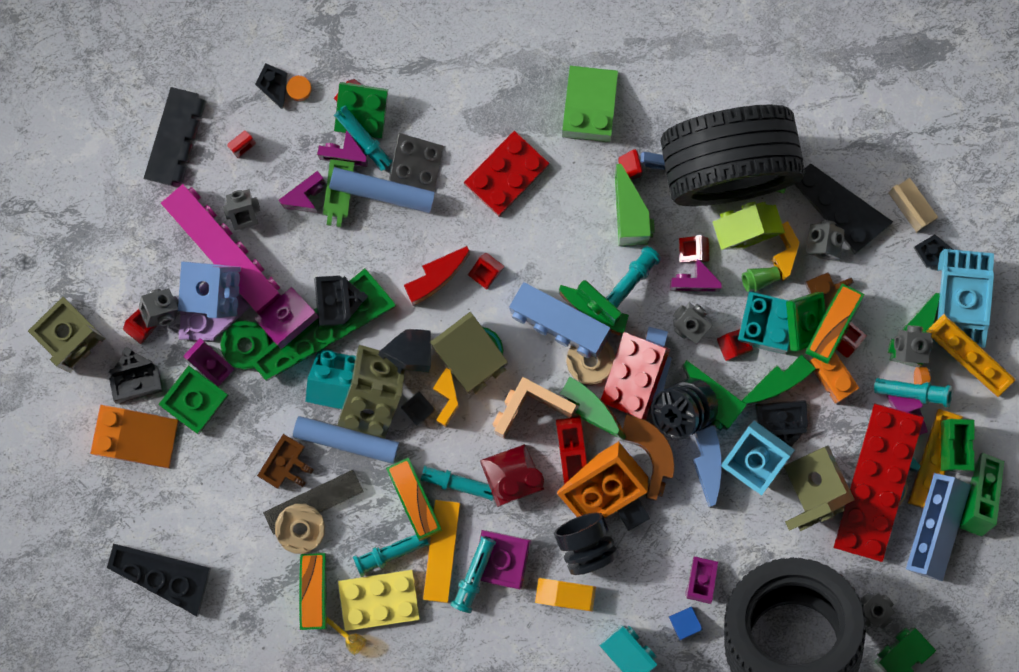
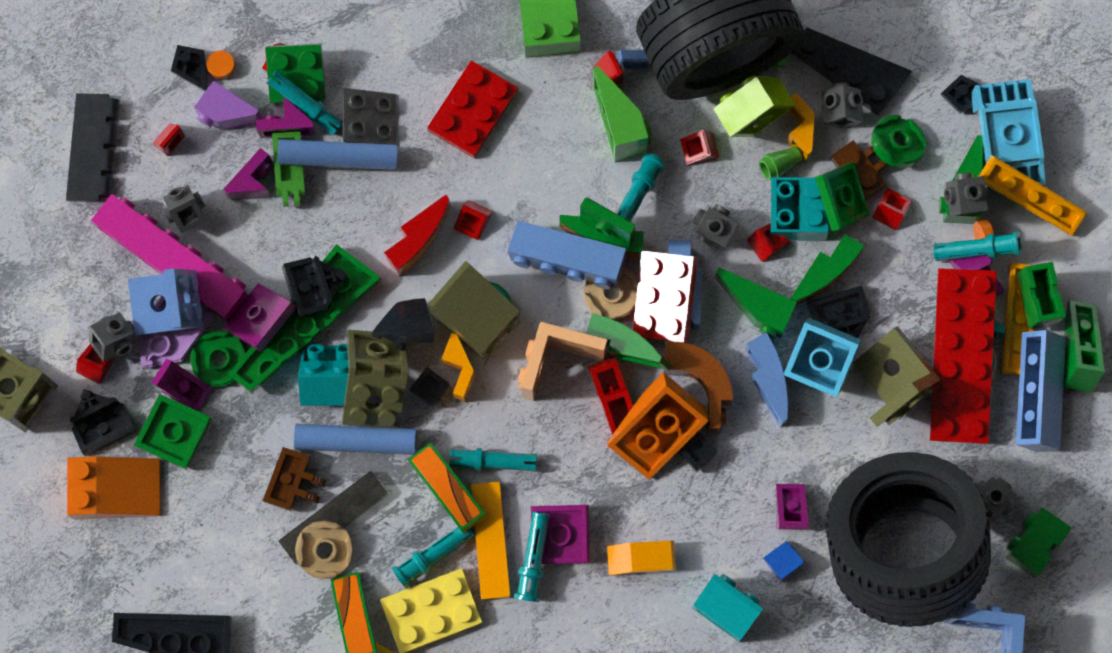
camera: 15 degrees left, 5 degrees down
(294, 129) = (224, 109): none -> medium lavender slope
(512, 475) = (552, 438): dark red slope -> none
(586, 543) = (655, 498): black wheel -> none
(684, 408) = (728, 319): black wheel -> none
(703, 281) = (717, 180): magenta slope -> none
(834, 378) = (886, 250): orange brick -> none
(835, 323) = (874, 191): slope -> none
(876, 273) = (892, 153): none -> green tile
(913, 204) = (929, 48): tan panel -> none

